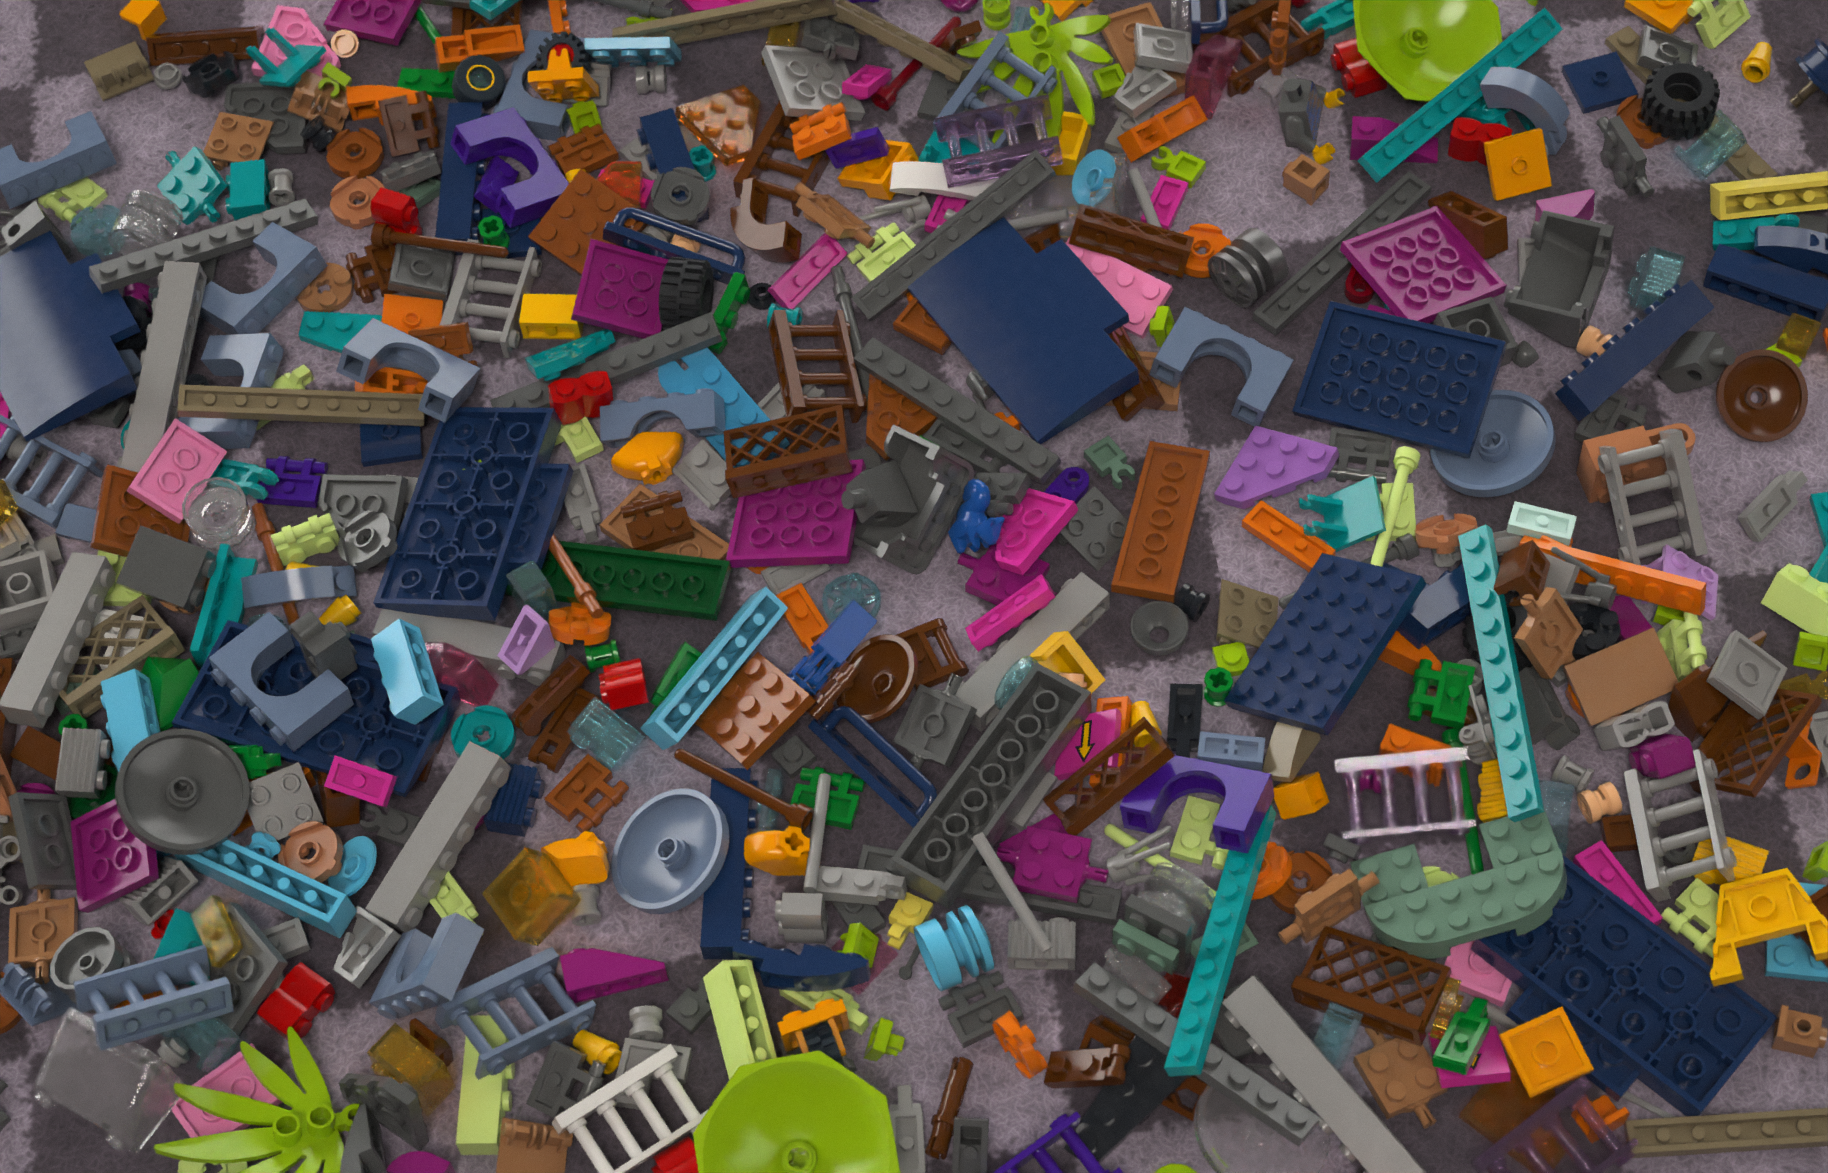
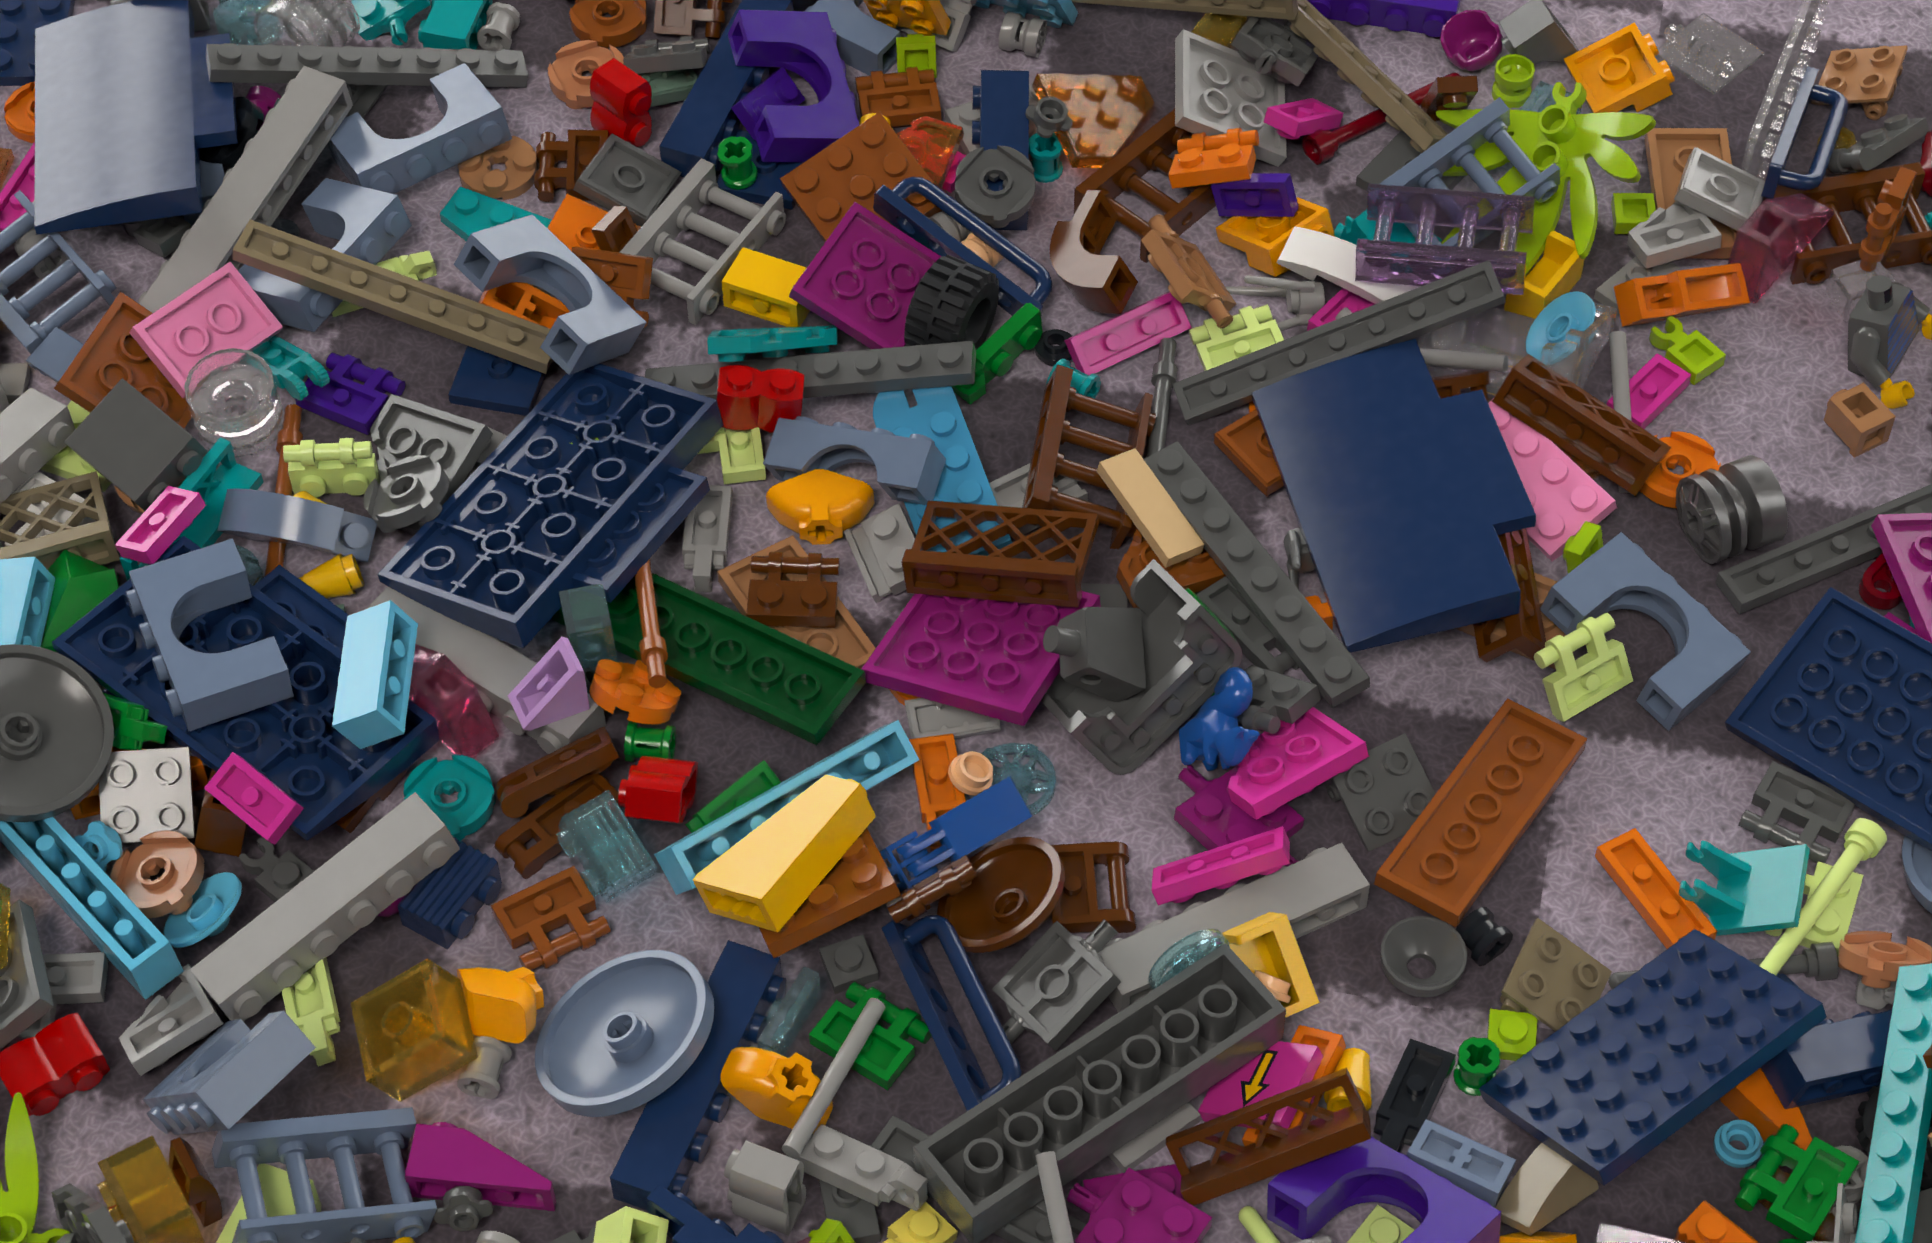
camera: 15 degrees right, 5 degrees down
(209, 618) = (160, 525): none -> dark pink plate
(324, 646) = (282, 605): dark grey hinge -> none
(383, 236) = (596, 122): reddish brown piece -> none
(430, 309) = (614, 229): none -> reddish brown plate
(611, 999) = (463, 1208): none -> dark grey plate
(698, 129) = (1049, 108): none -> dark grey plate
(731, 700) = (786, 856): none -> yellow slope
(796, 814) = (814, 1041): reddish brown piece -> none
(825, 605) = (971, 773): none -> light nougat plate
(872, 388) = (1150, 507): none -> tan tile
(1068, 489) = (1371, 729): dark purple plate -> none
(1109, 459) = (1441, 704): sand green plate -> none
(1196, 410) = (1589, 678): none -> yellowish green plate
(1273, 466) = (1670, 787): medium lavender plate -> none
(1395, 672) = (1741, 1131): none -> medium azure plate

